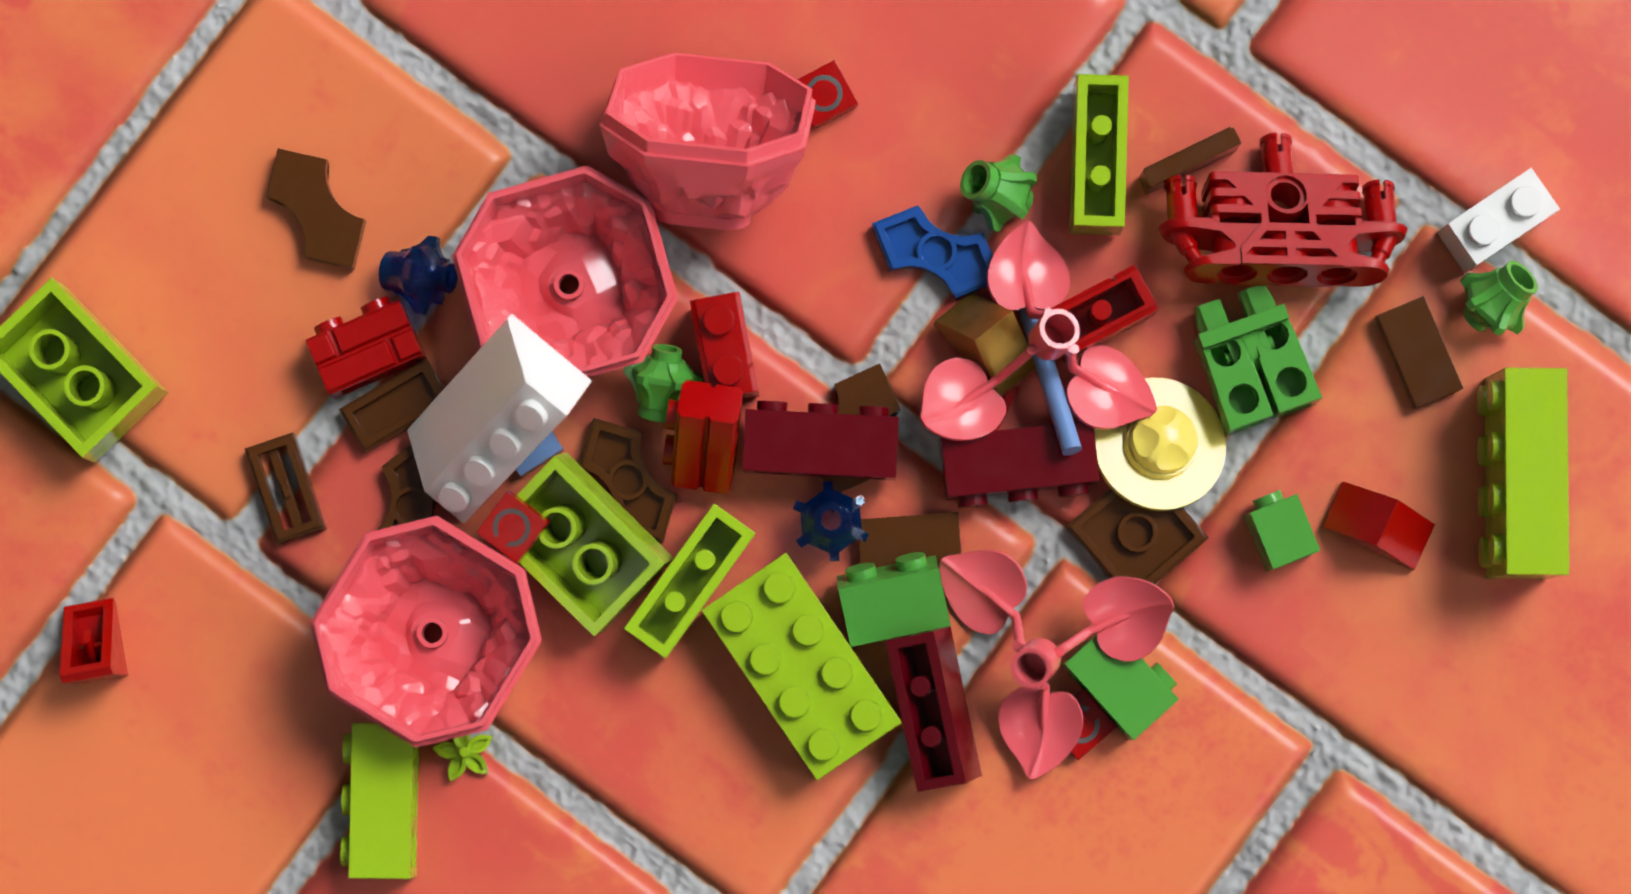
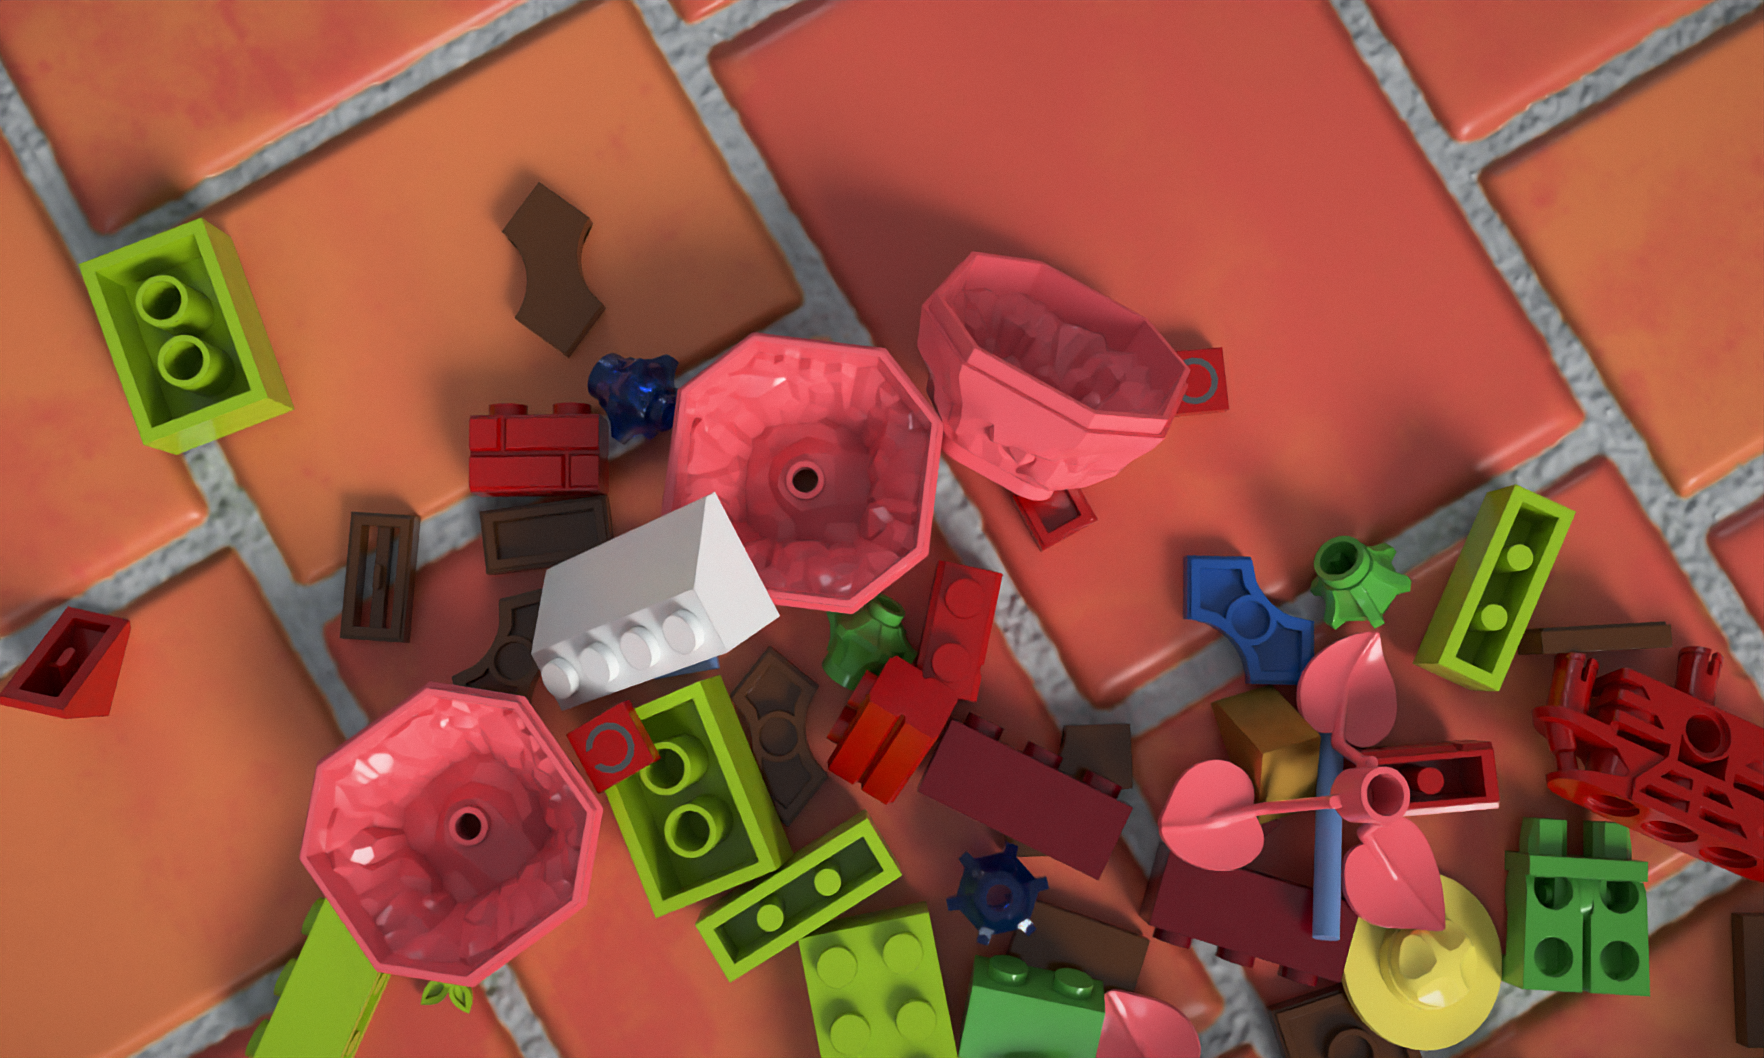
camera: 20 degrees right, 0 degrees up
(763, 234) = (1056, 517): none -> red tile

